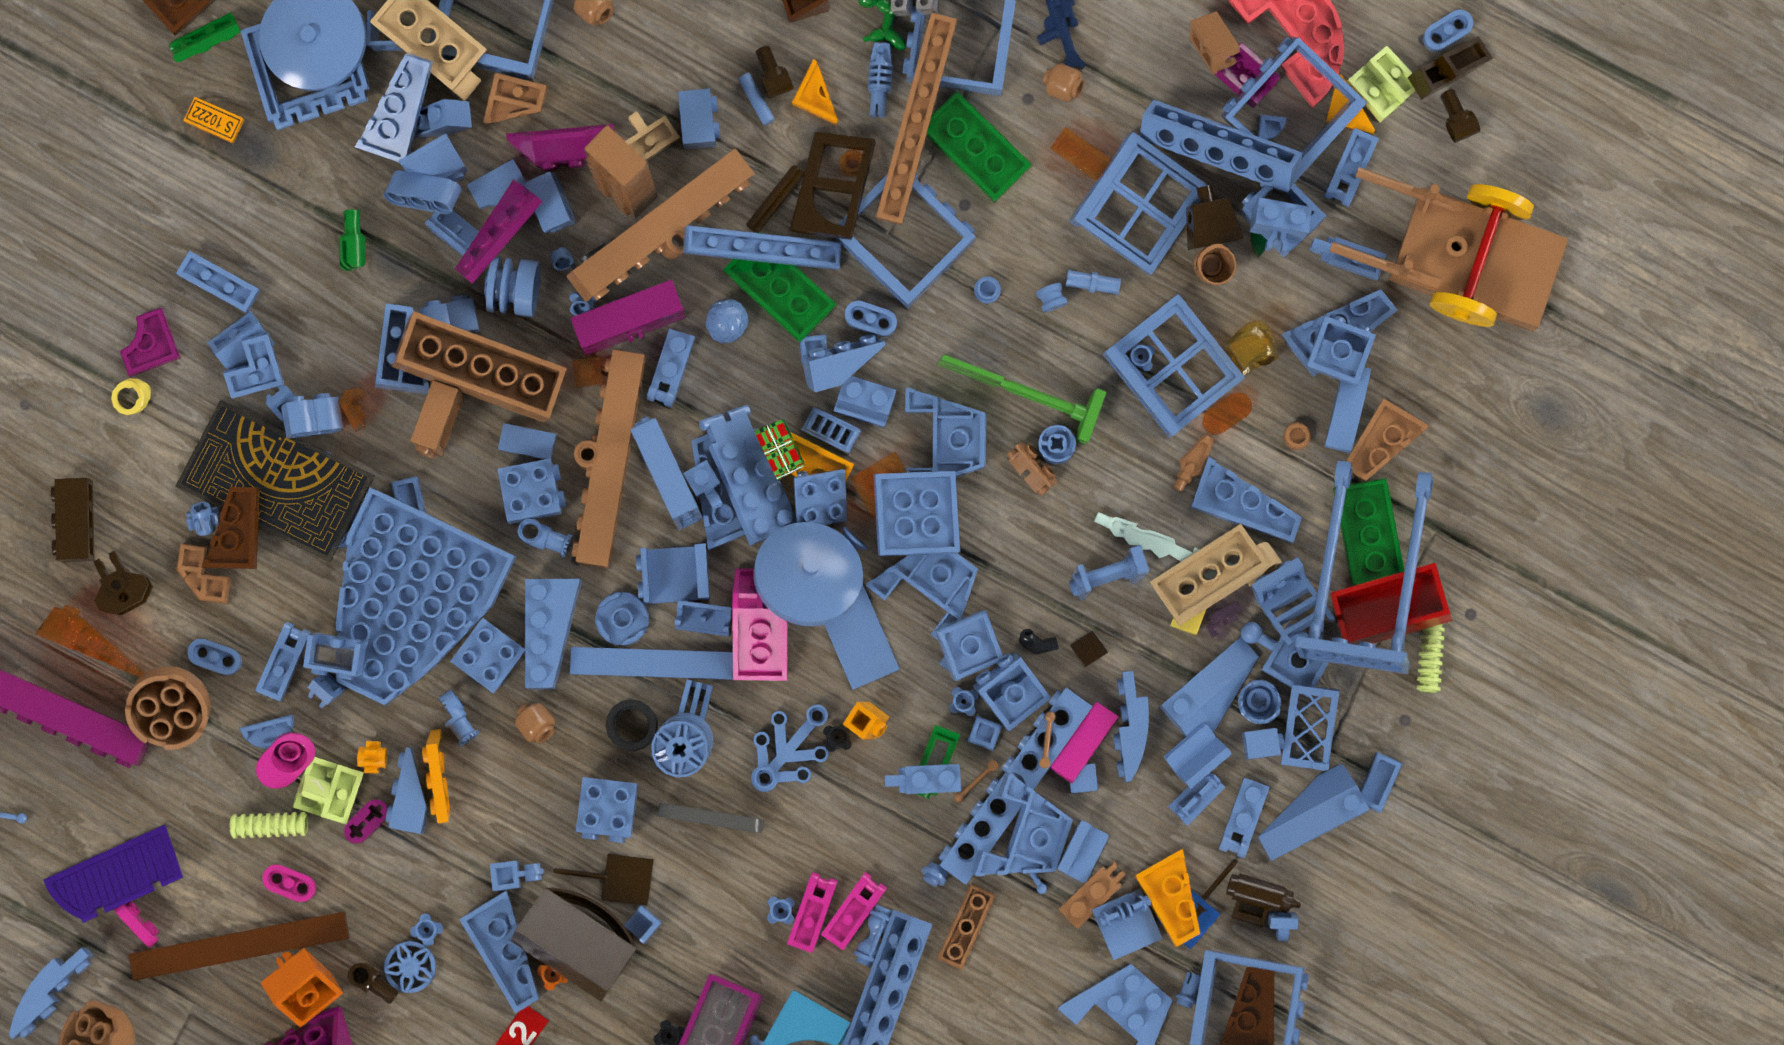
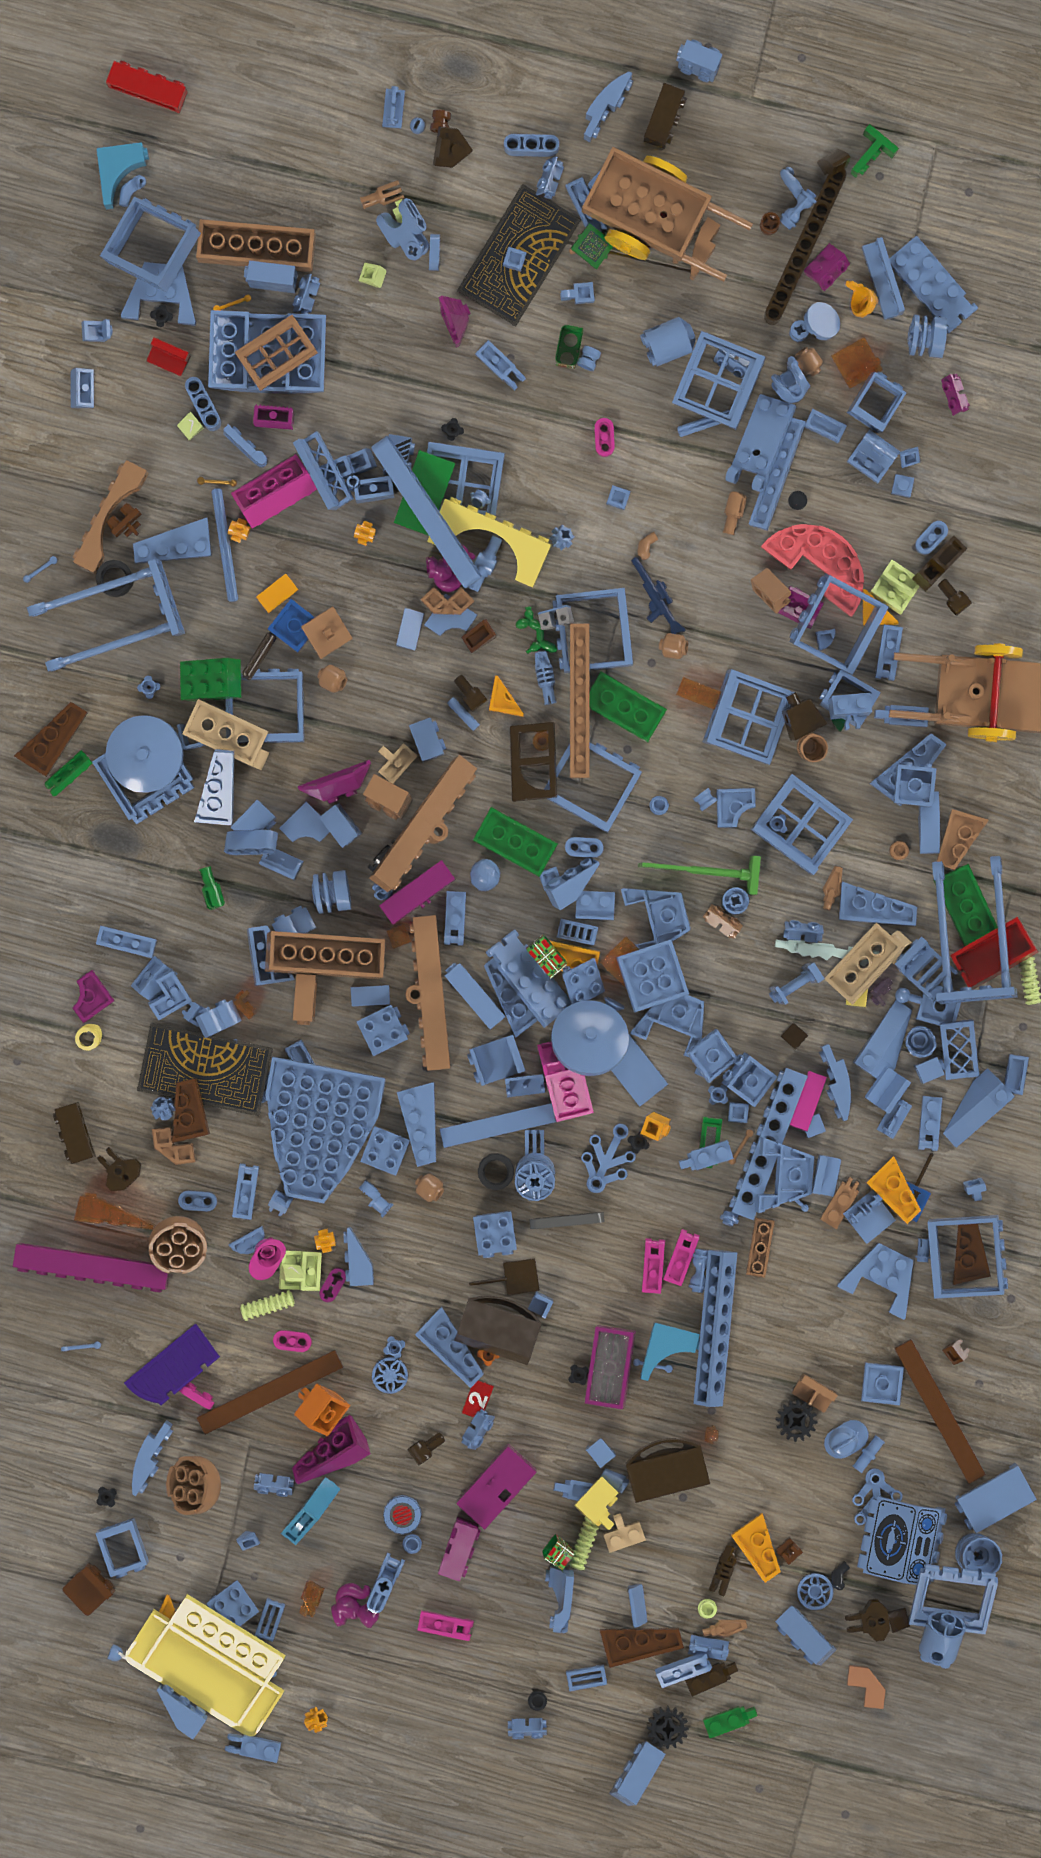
camera: 10 degrees left, 5 degrees up
(214, 120) = (90, 829): light orange tile -> none
(334, 654) = (281, 1178): medium blue window -> none
(373, 984) = (370, 1393): dark brown axle -> none
(440, 804) = (372, 1244): light orange wing -> none
(442, 118) = (251, 786): medium blue slope -> none
(502, 224) = (313, 850): magenta wing -> none
(507, 875) = (439, 1296): medium blue plate -> none
(513, 98) = (295, 758): medium nougat wing -> none
(546, 538) = (402, 1059): medium blue connector -> none
(563, 264) = (359, 862): medium blue hinge -> none
(622, 619) = (469, 1100): medium blue tile -> none
(703, 481) = (499, 991): medium blue plate -> none
(762, 247) = (496, 819): medium blue tile -> none
(775, 199) = (495, 781): dark brown axle -> none
(787, 906) = (627, 1266): medium blue plate -> none
(1035, 644) = (756, 1042): black arm -> none
(1050, 717) = (785, 1123): medium nougat hinge -> none
(1086, 315) = (732, 804): none -> medium blue tile
(1092, 282) = (730, 780): medium blue pin -> none
(1148, 512) = (794, 930): none -> medium blue hinge
(1220, 145) = (795, 664): medium blue brick -> none
(1226, 413) = (846, 847): clear orange tile -> none
(1252, 346) = (853, 796): clear yellow piece -> none
(1259, 894) = (954, 1173): dark brown piece -> none

